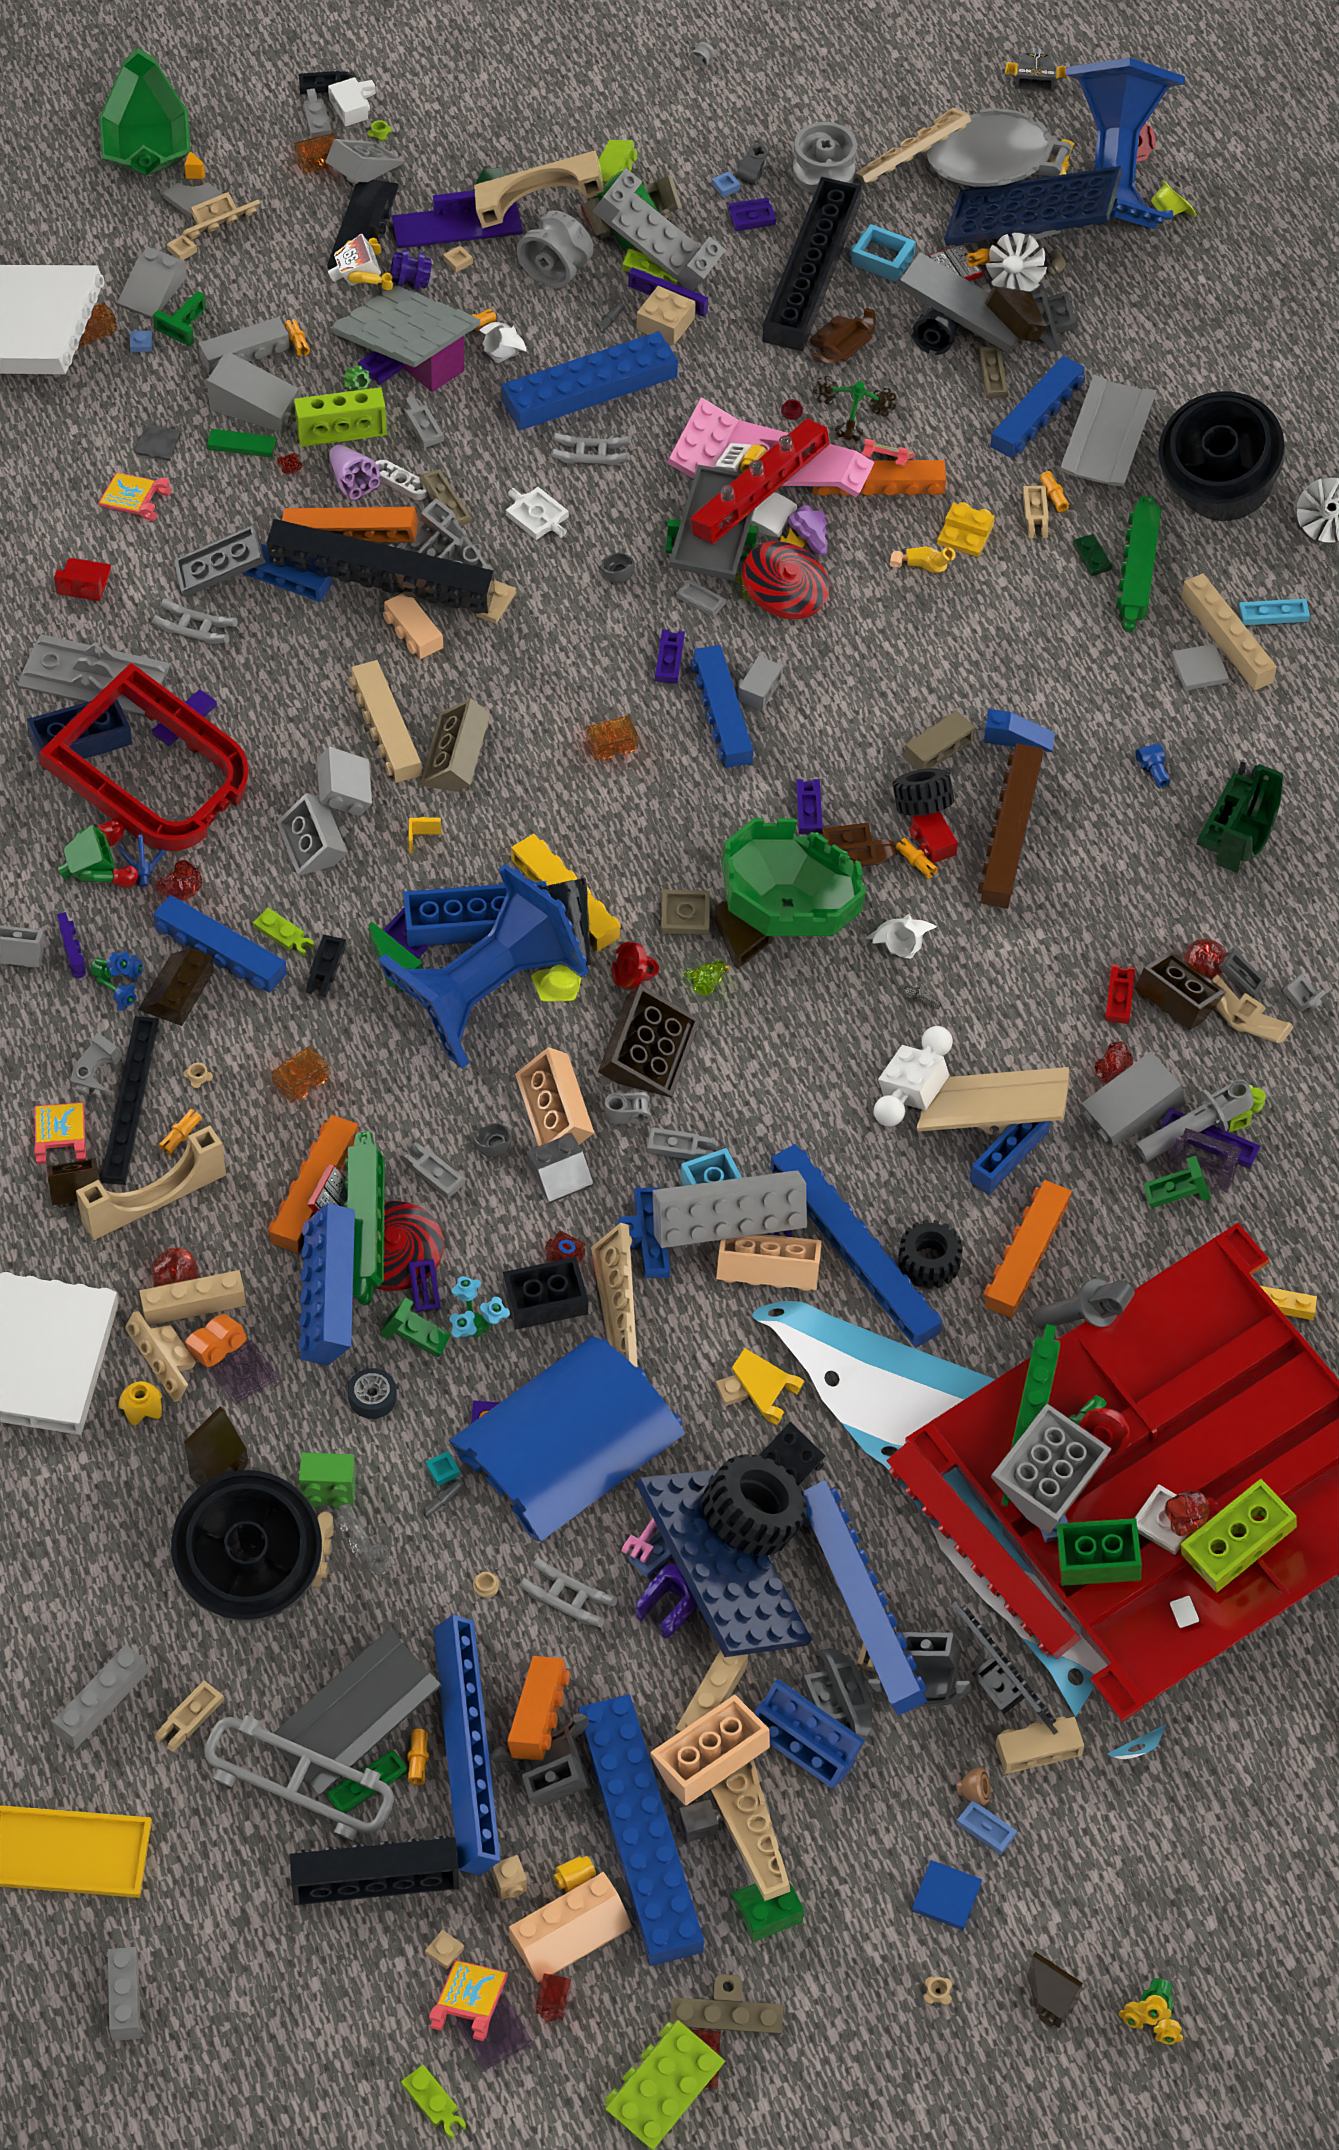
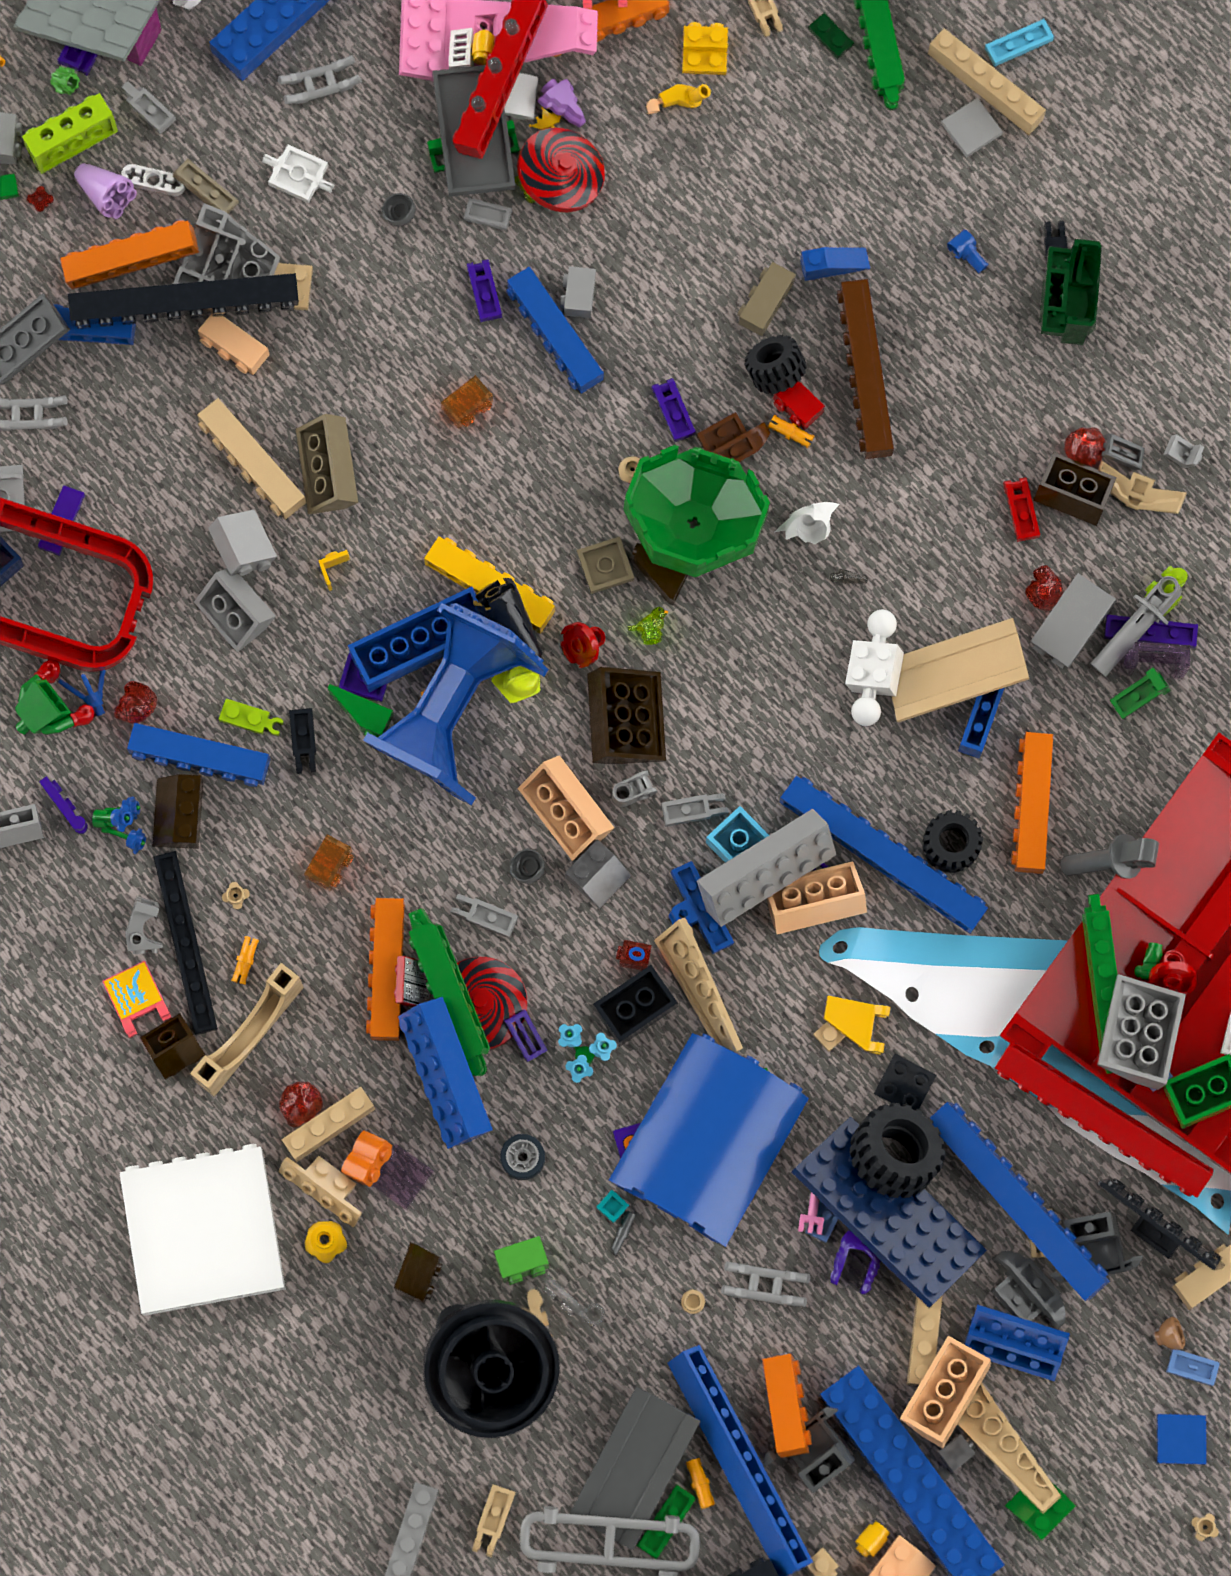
camera: 20 degrees left, 20 degrees up
(415, 1329) = (534, 1082): green bracket -> none

